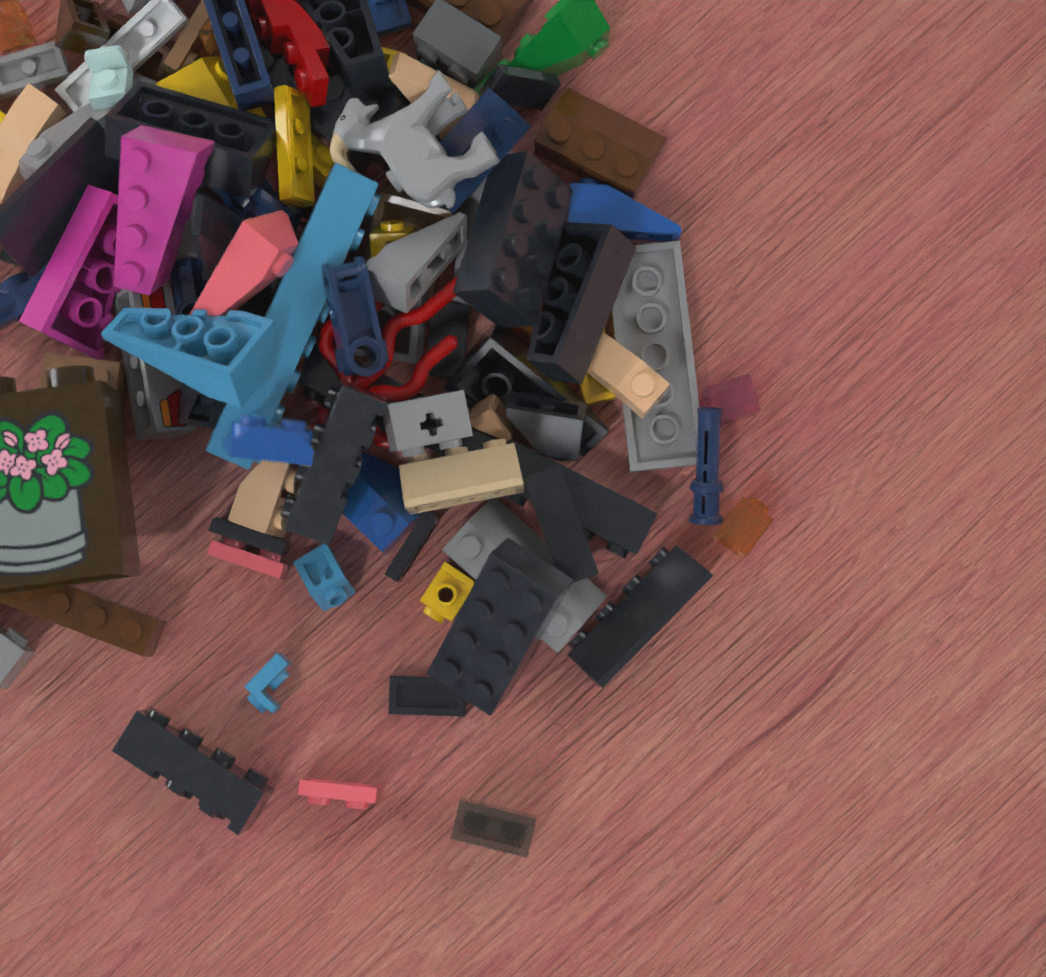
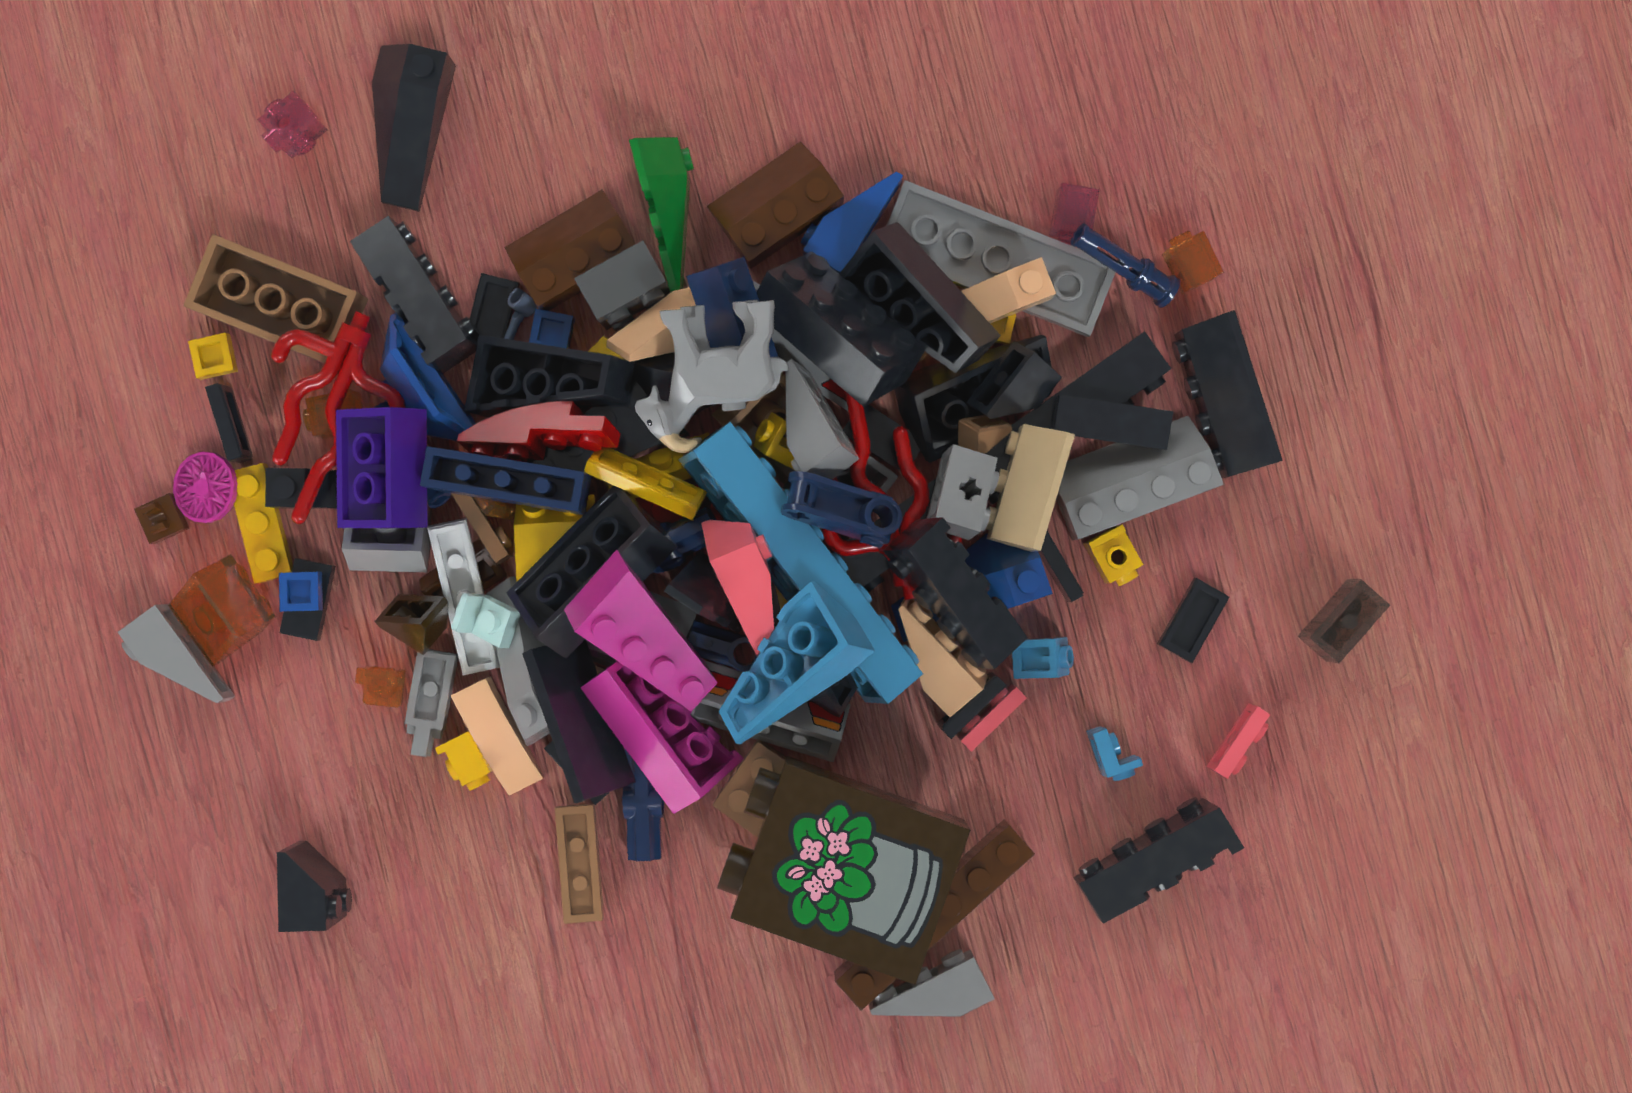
camera: 65 degrees left, 5 degrees up
(270, 442) = (919, 642): blue slope -> none
(499, 626) = (1178, 522): black brick -> none
(522, 86) = (690, 248): black tile -> none

